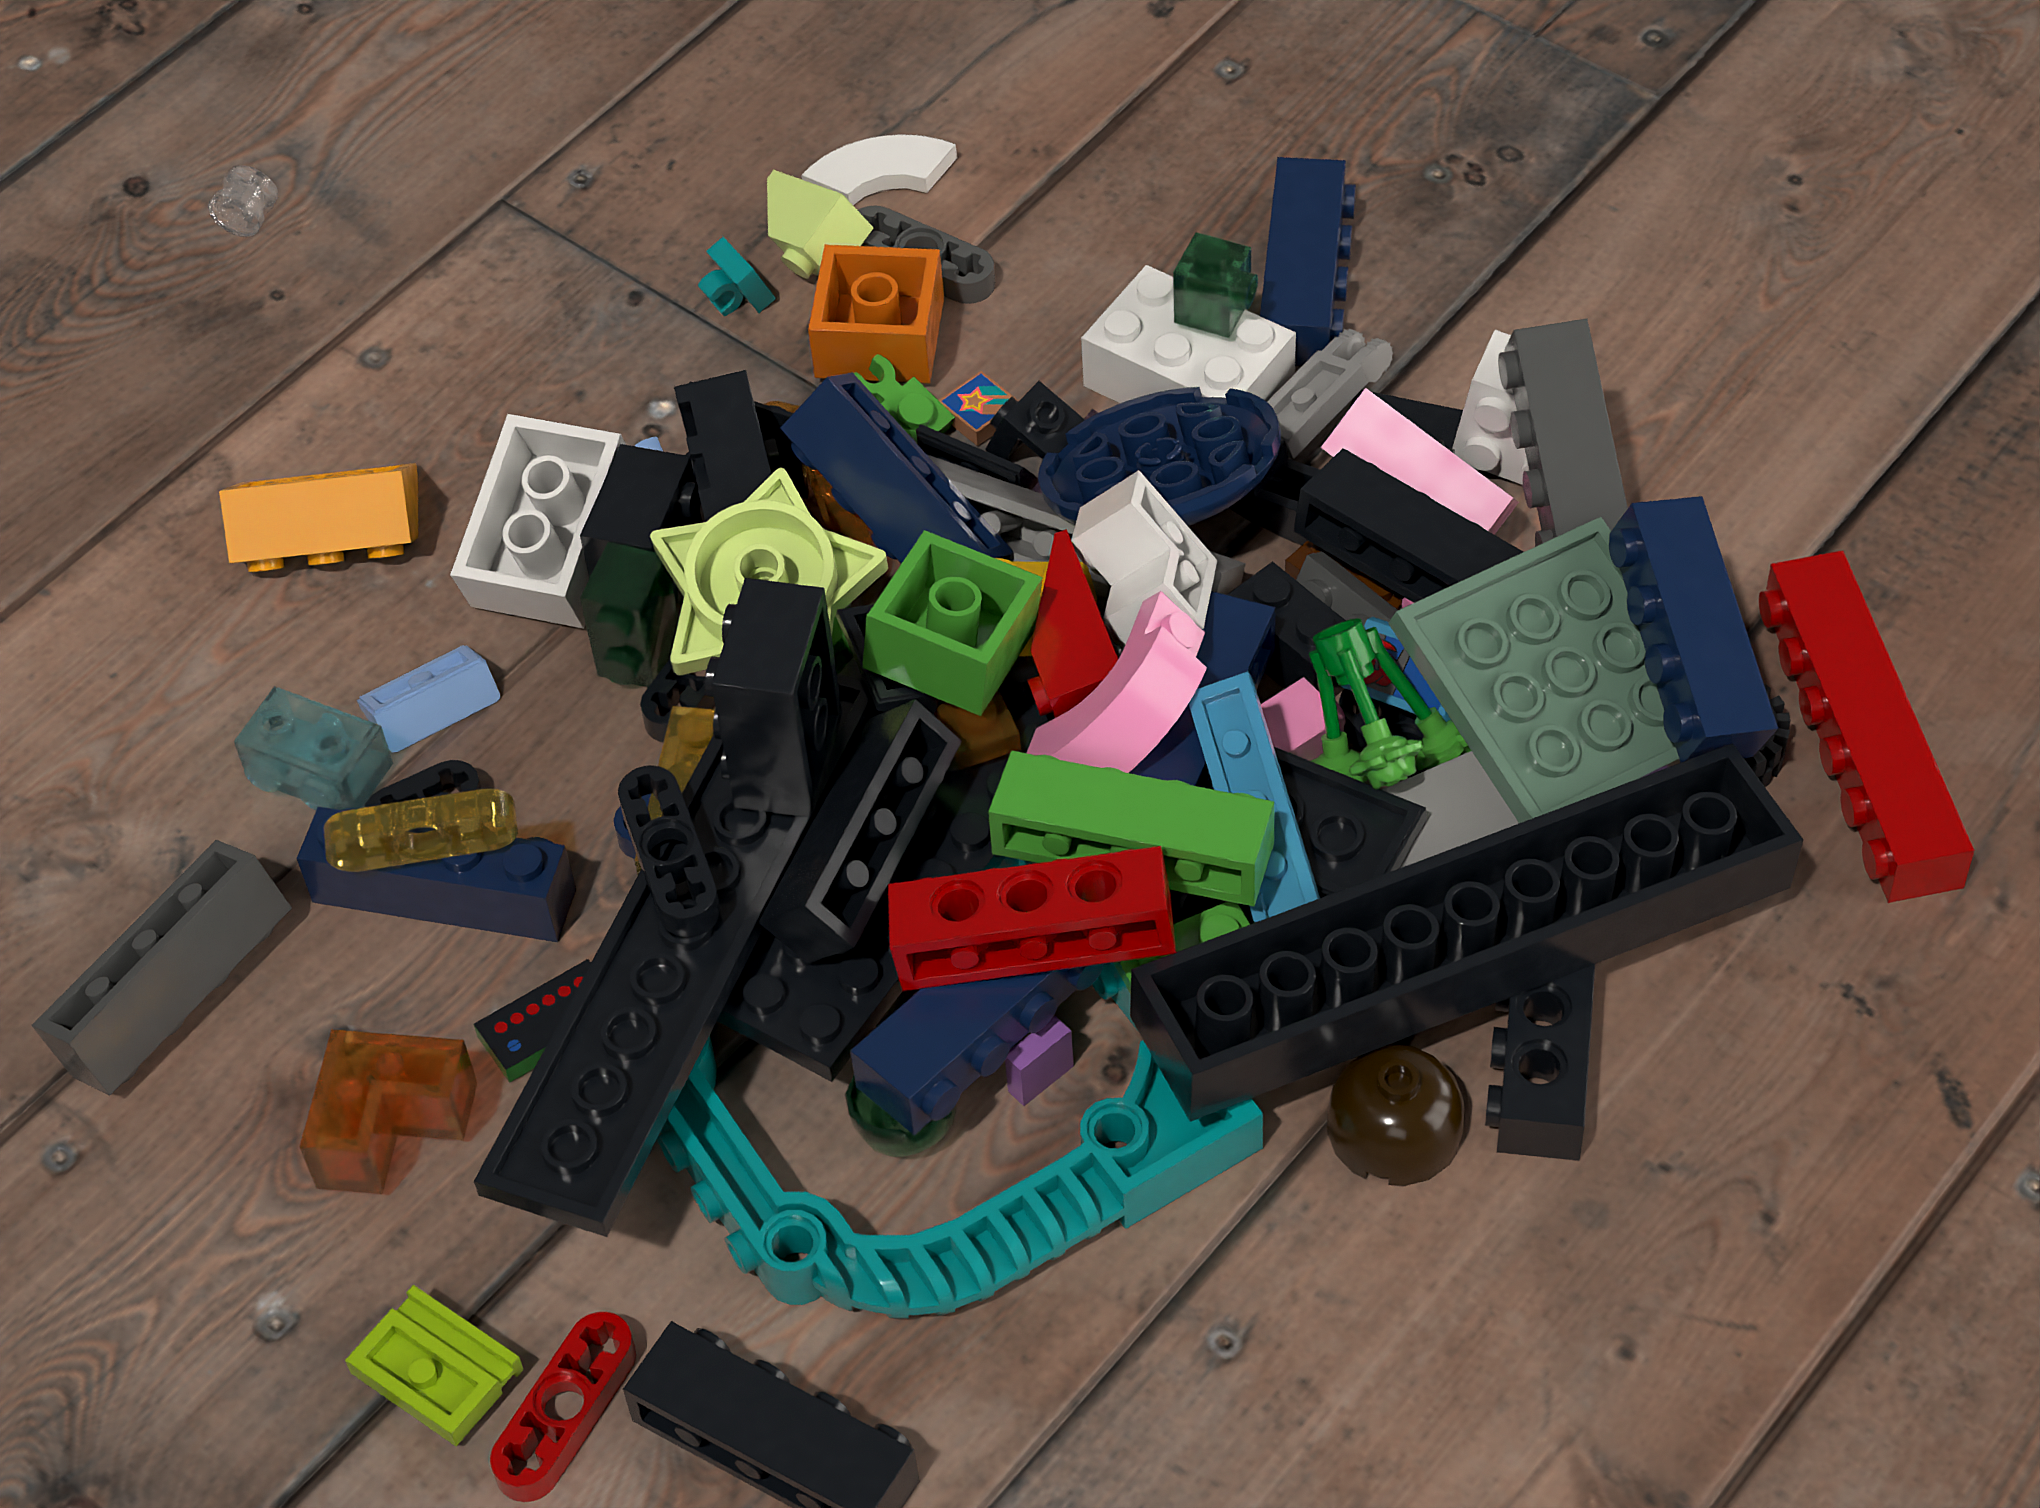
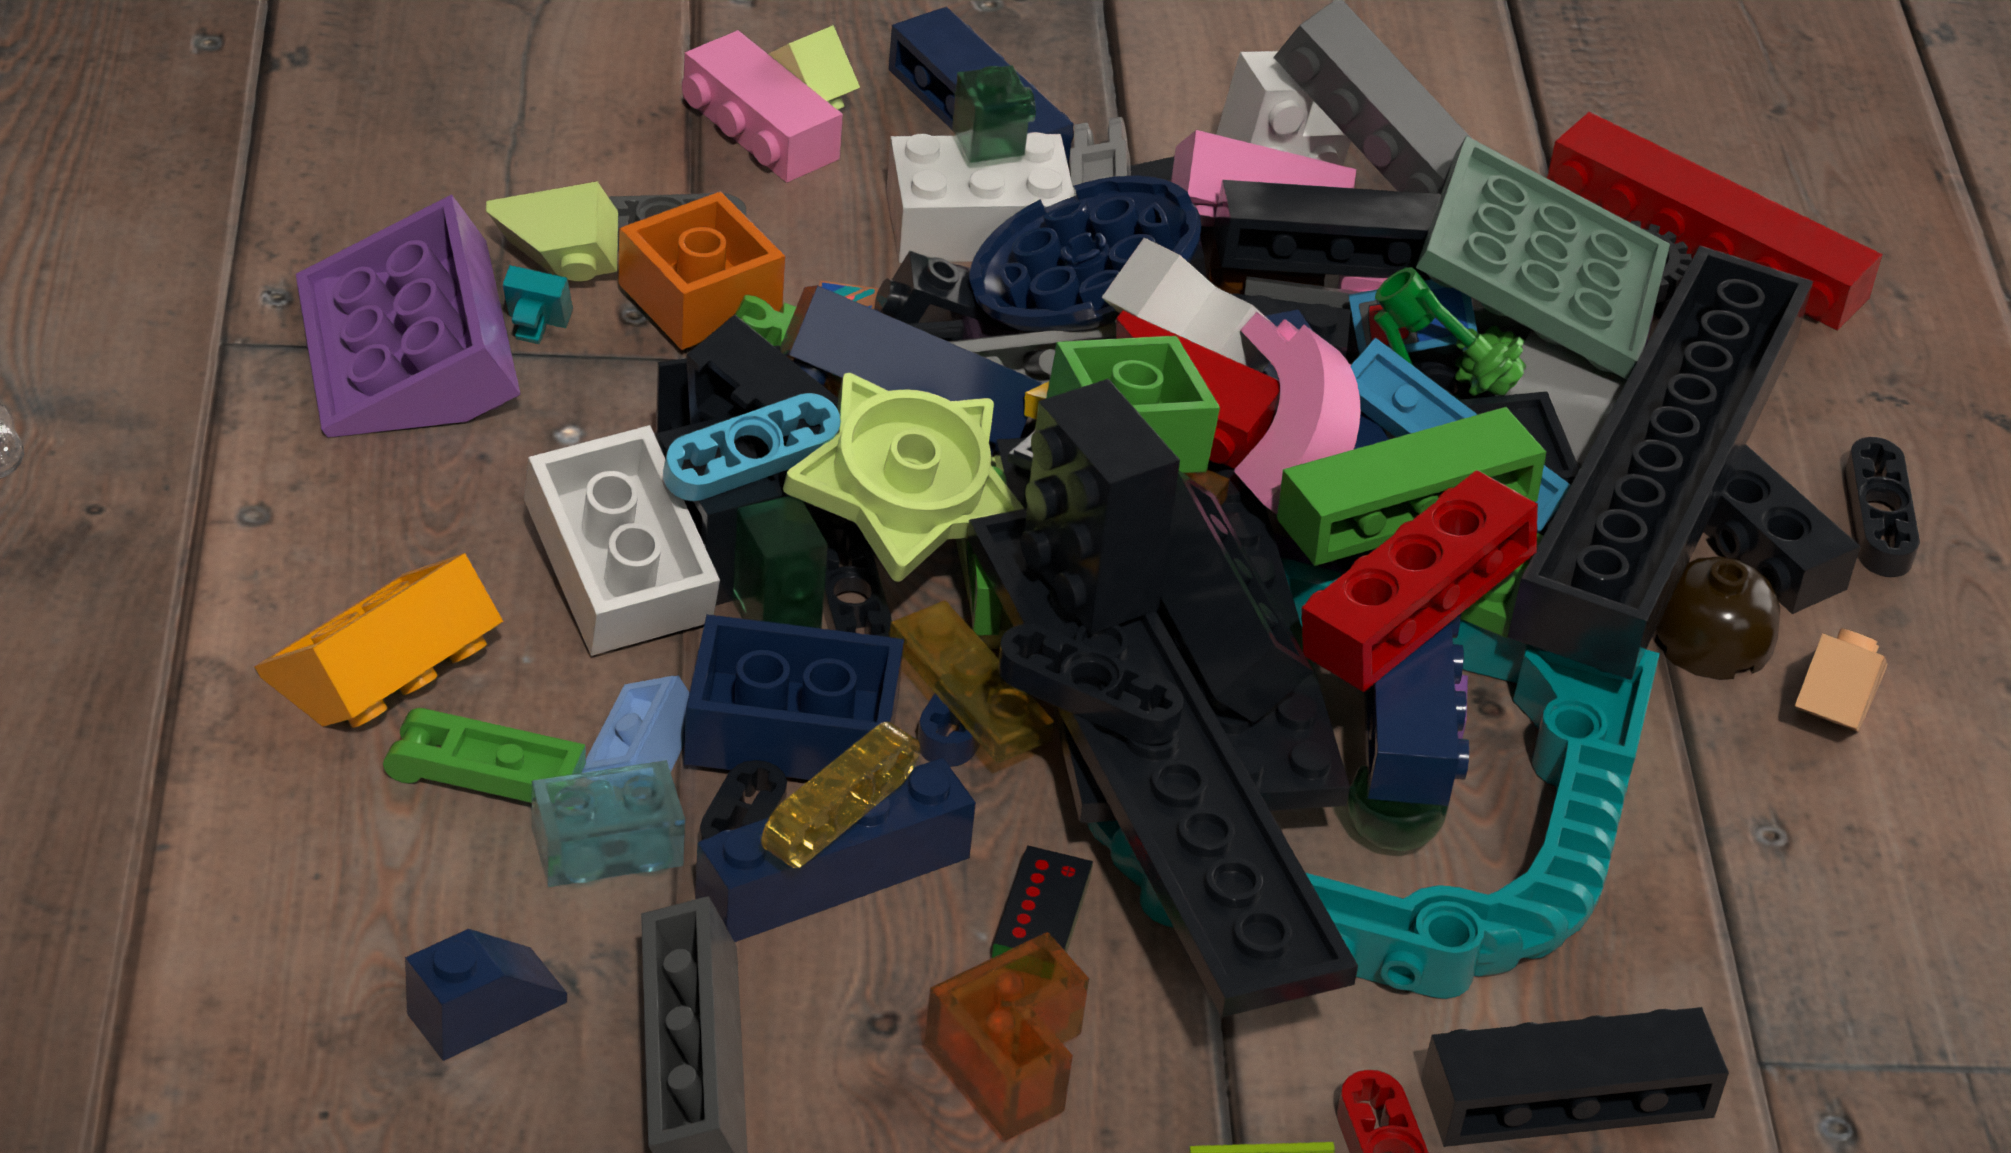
camera: 50 degrees left, 10 degrees down
(95, 829) = (476, 990): none -> dark blue slope
(297, 647) = (478, 754): none -> bright green plate
(533, 730) = (787, 694): none -> dark blue brick
(608, 508) = (735, 469): none -> medium azure beam
(625, 254) = (407, 327): none -> medium lavender slope
(883, 165) = (553, 165): white tile -> none
(1103, 184) = (762, 106): none -> bright pink brick
(1169, 174) = (820, 64): none -> yellowish green slope
(1432, 1242) = (1842, 679): none -> light nougat slope
(1691, 628) = (1601, 182): dark blue brick -> none
(1693, 1128) = (1873, 523): none -> black beam

